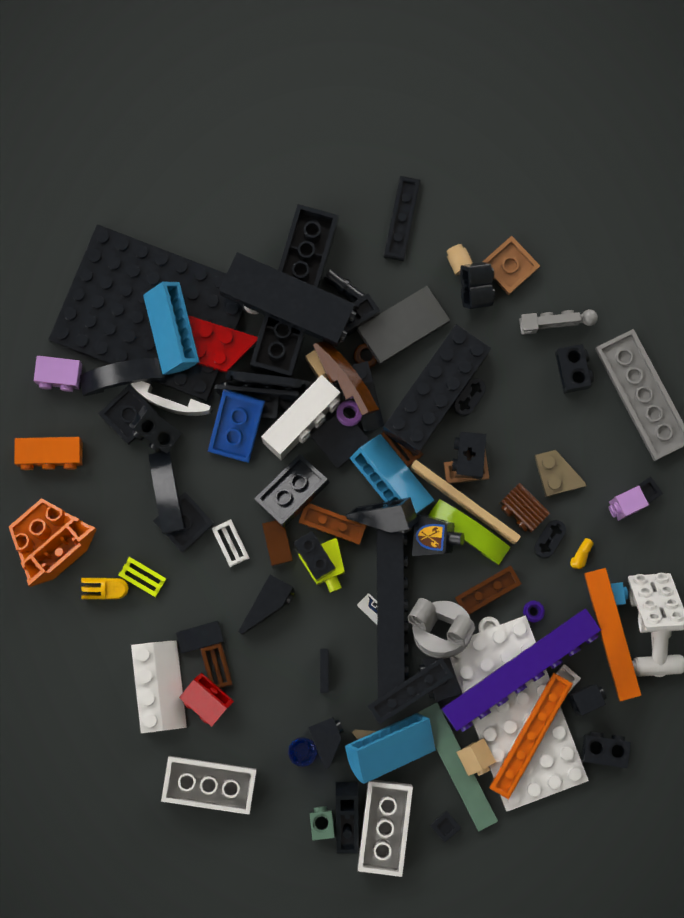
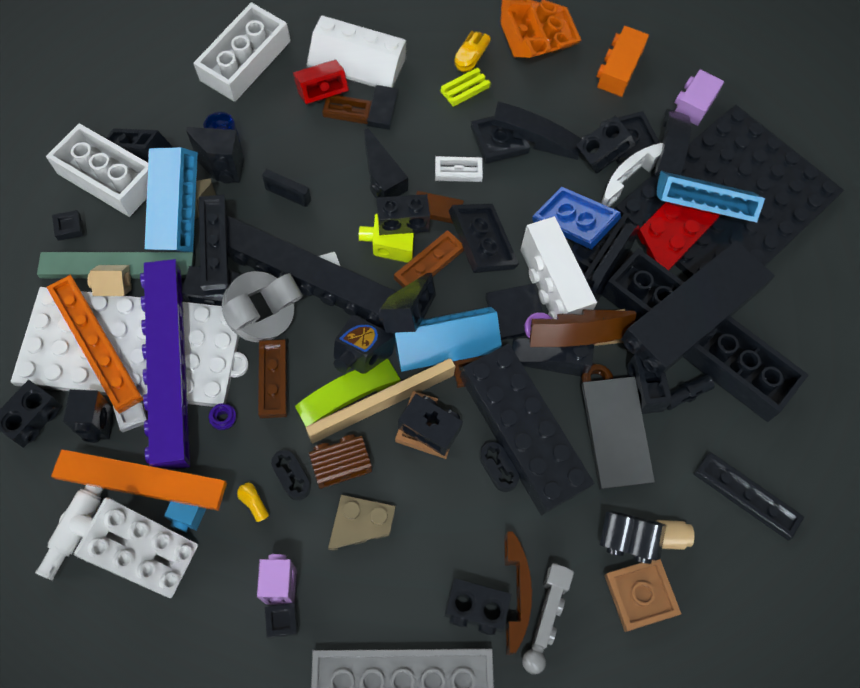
camera: 115 degrees right, 15 degrees down
(318, 833) = (145, 119): sand green brick -> none
(574, 336) = (516, 557): none -> reddish brown slope

